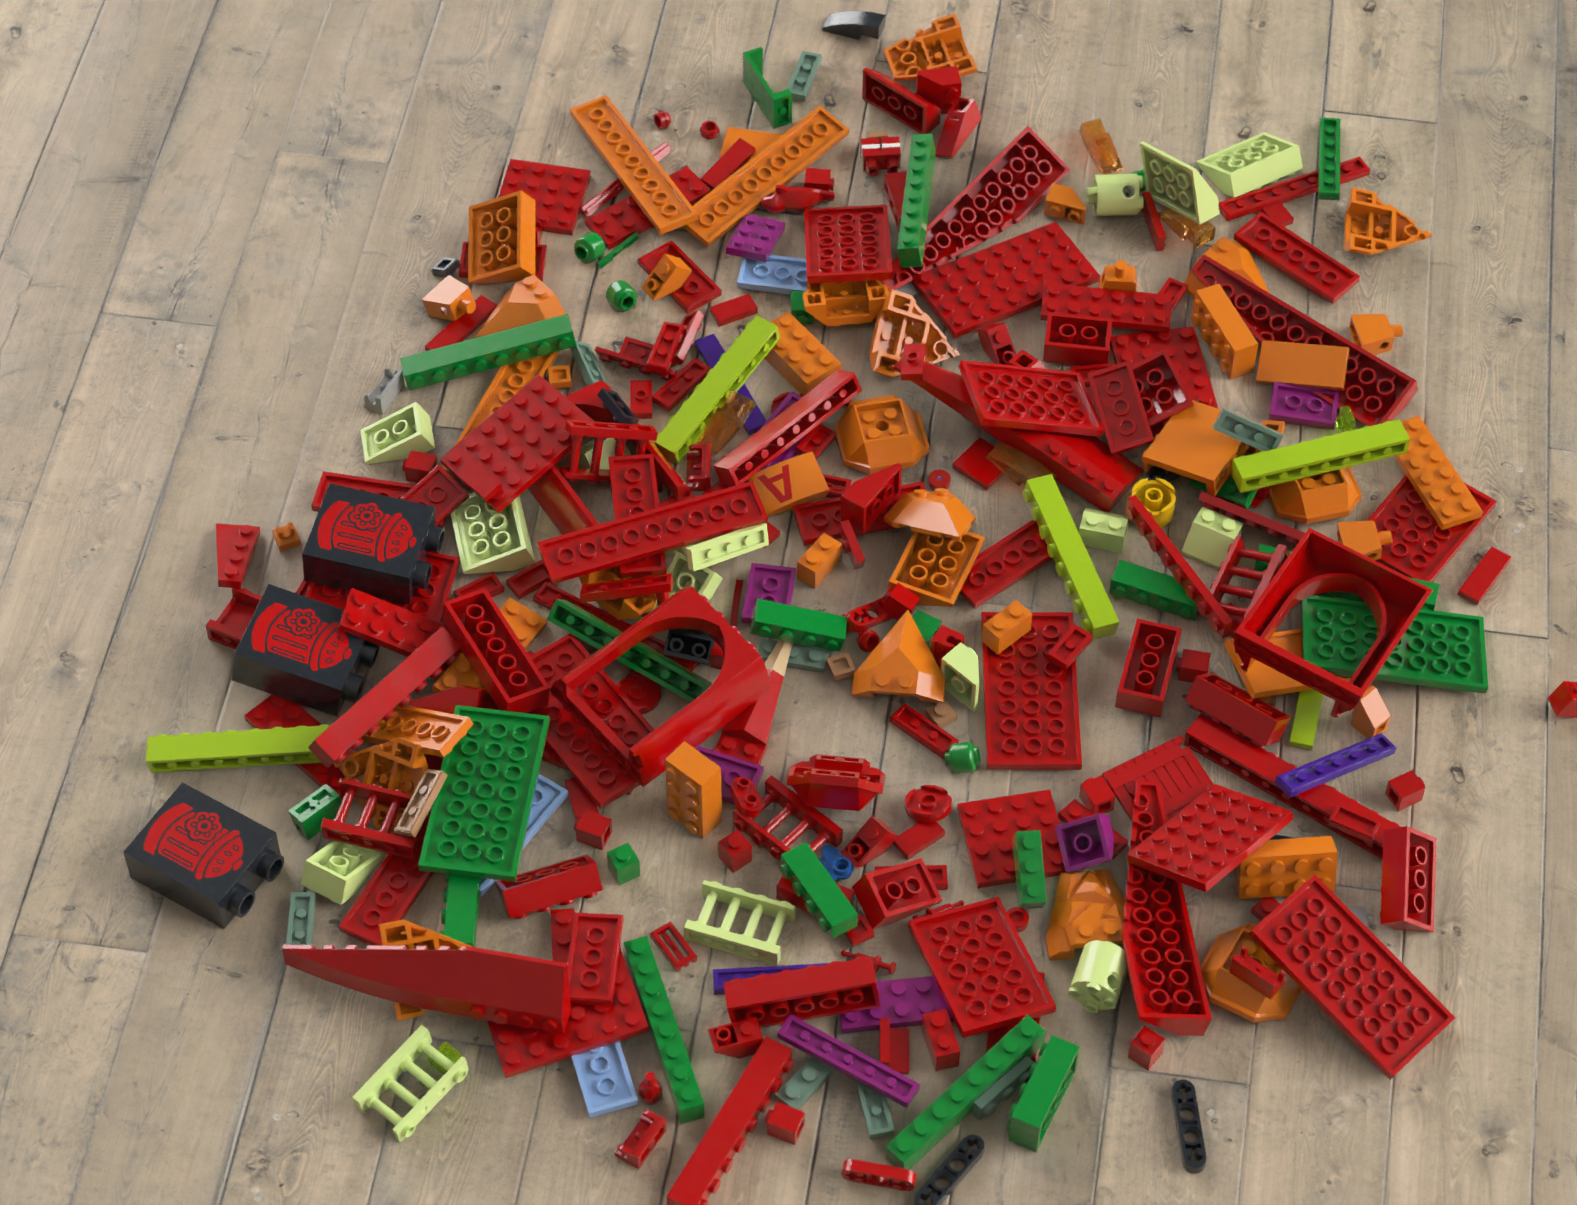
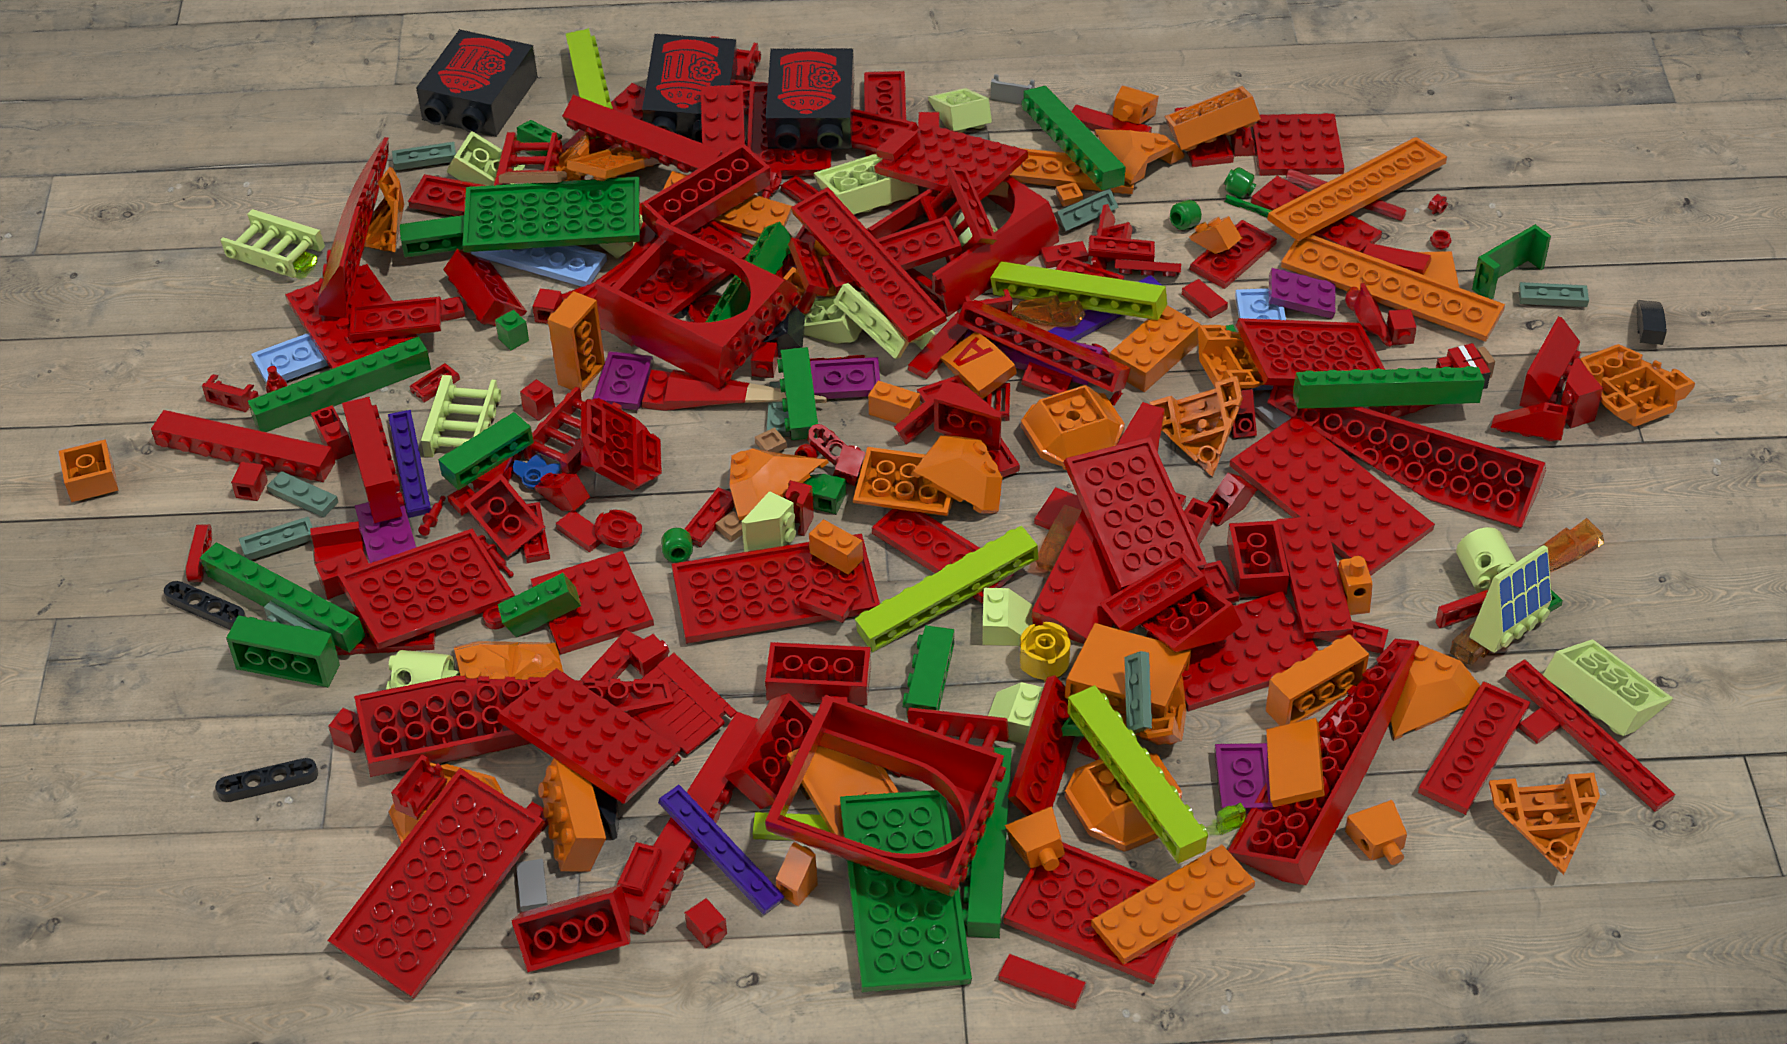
camera: 80 degrees right, 5 degrees down
(234, 552) = (794, 37): red wing -> none
(445, 267) = (1177, 99): black tile -> none
(448, 699) = (652, 180): red slope -> none
(618, 408) = (1009, 211): black plate -> none
(746, 797) = (593, 389): red plate -> none
(848, 1061) = (308, 507): magenta plate -> none
(913, 362) = (1151, 413): red plate -> none
(939, 479) = (1032, 482): red tile -> none
(1065, 204) = (1460, 522): orange slope -> none
(1086, 842) = (581, 645): magenta slope -> none
(1181, 570) = (954, 668): red plate -> none
(1329, 159) = (1650, 759): green tile -> none

